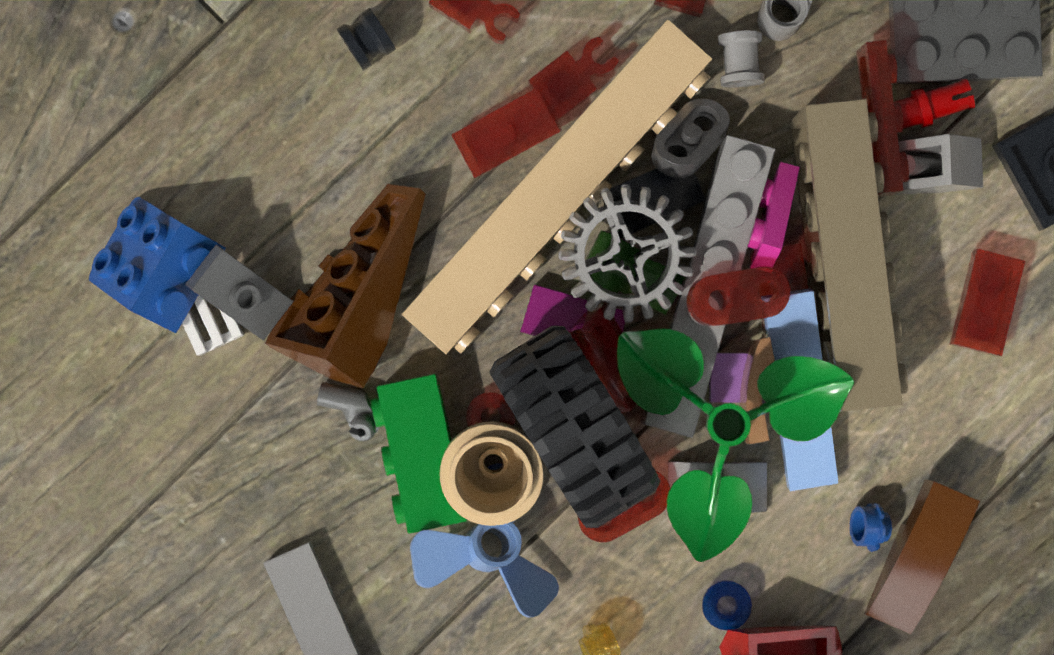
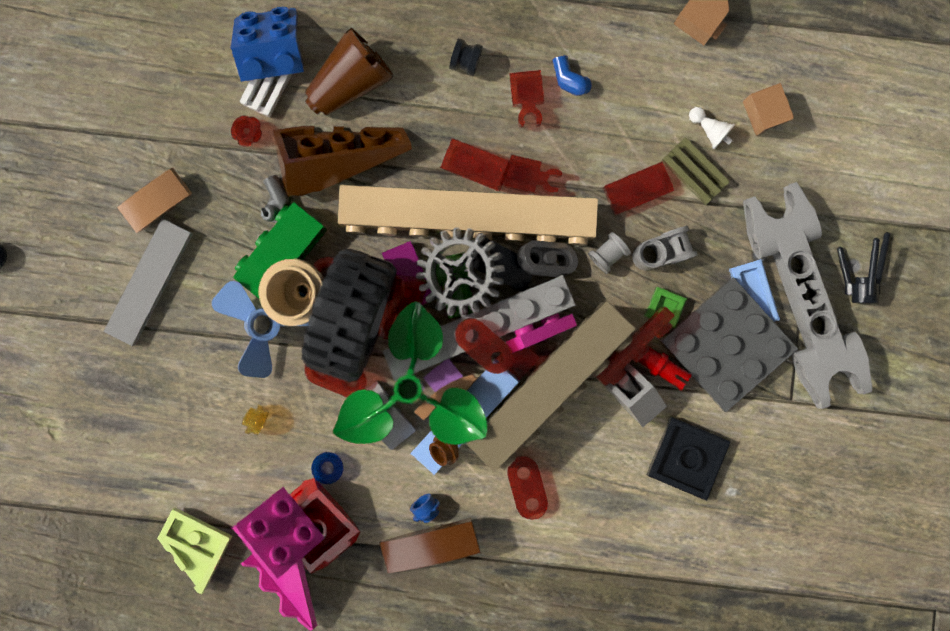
camera: 50 degrees right, 0 degrees up
(225, 372) = (240, 125): none -> clear red plate
(234, 554) = (154, 200): none -> medium nougat slope
(239, 292) = (286, 96): dark grey plate -> none
(273, 199) = (347, 75): none -> reddish brown cone
(824, 450) = (443, 453): none -> reddish brown plate
(849, 38) = (665, 298): none -> bright green tile
(944, 384) = (527, 488): none -> clear red plate
(987, 302) = (587, 477): clear red plate -> none

